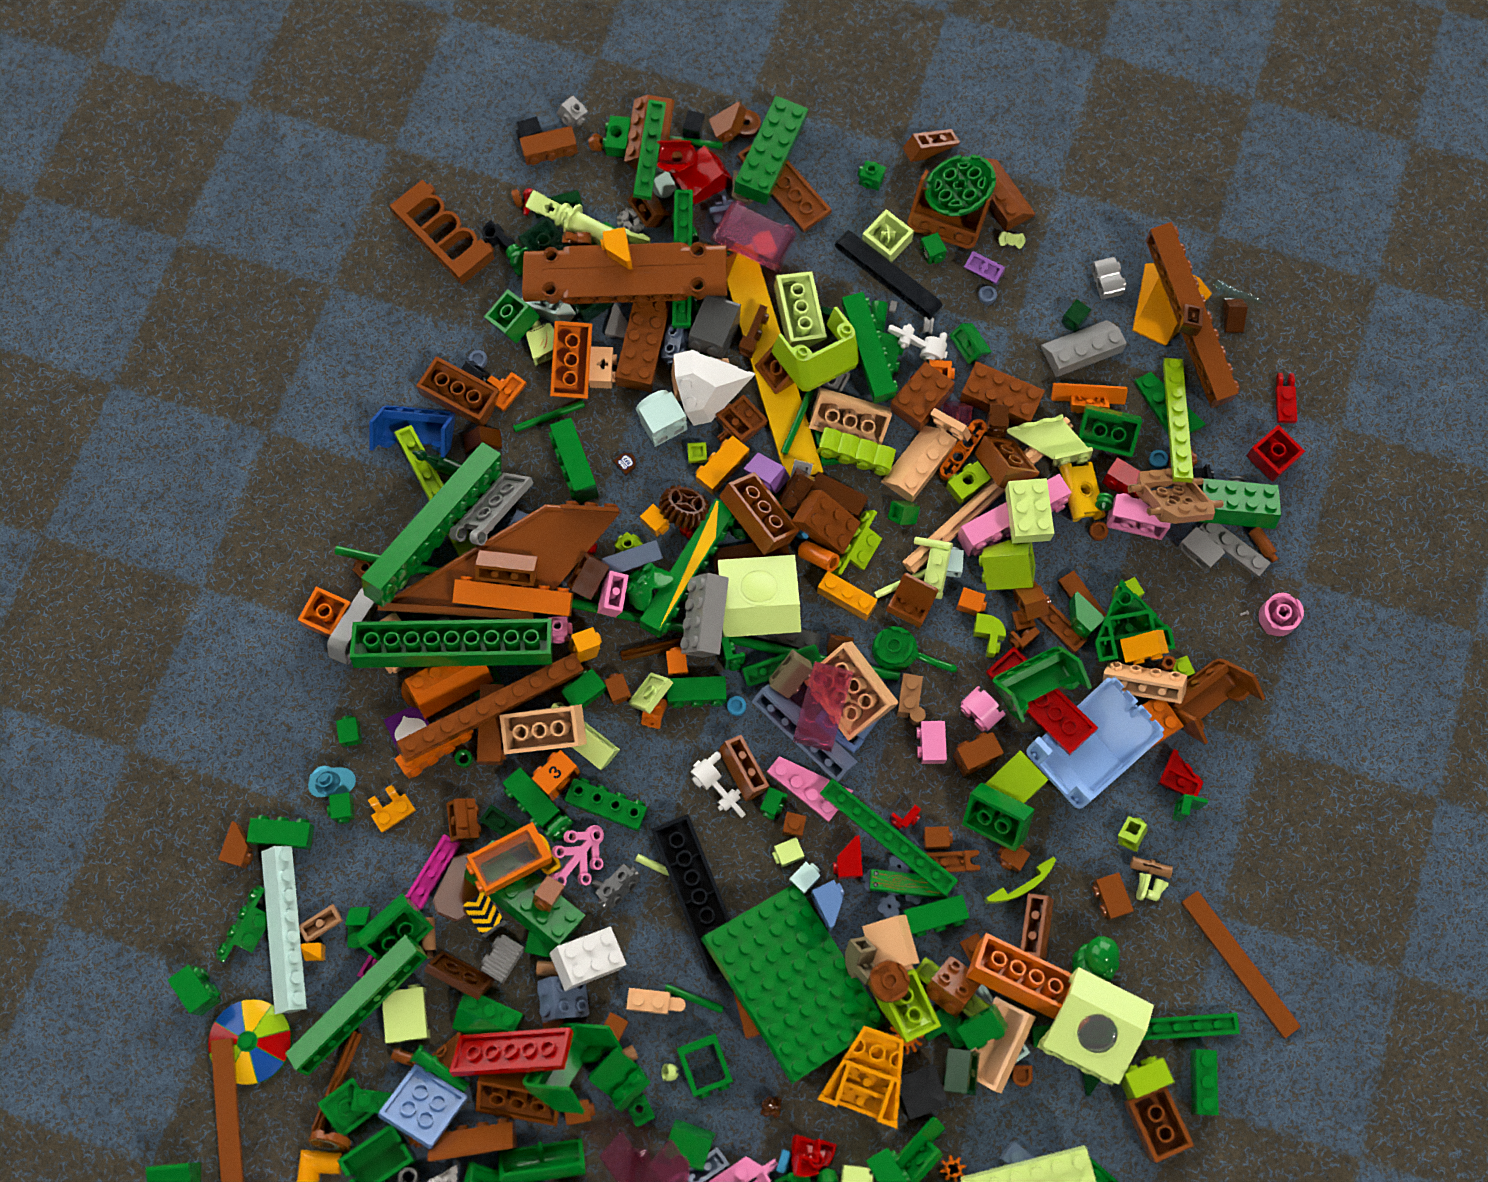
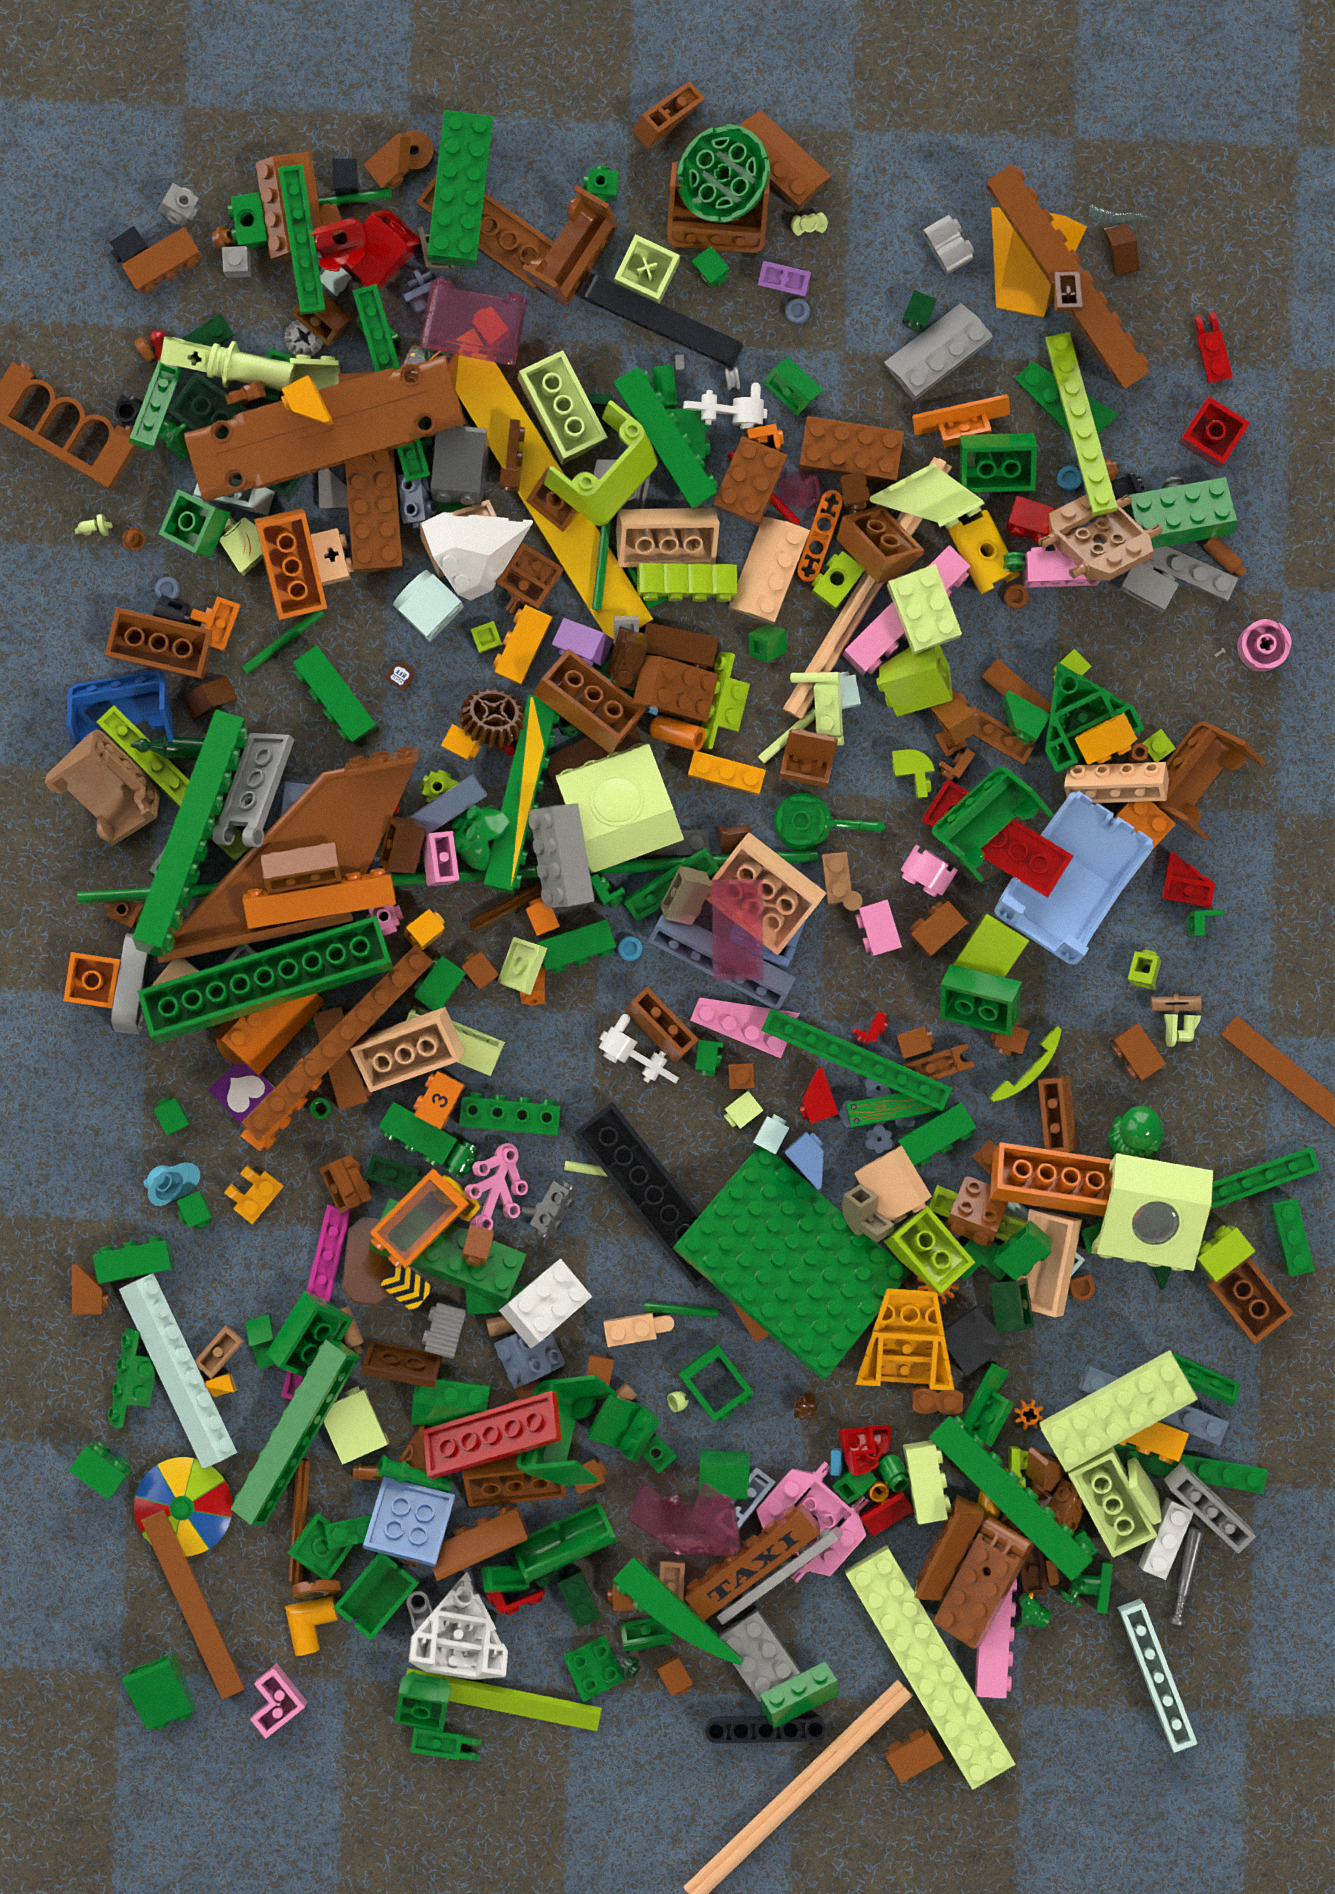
camera: 15 degrees left, 15 degrees up
(384, 475) = (107, 785): none -> medium nougat windscreen
(434, 302) = (87, 527): none -> yellowish green piece
(469, 318) = (133, 539): none -> dark orange plate
(509, 232) = (155, 405): none -> plate
(600, 159) = (236, 262): none -> light grey brick
(843, 209) = (576, 248): none -> dark orange windscreen
(874, 1132) = (929, 1401): none -> dark orange brick
(889, 981) = (902, 1231): dark orange tile -> none
(945, 422) = (805, 518): light nougat plate -> none
(971, 602) = (882, 736): orange brick -> none

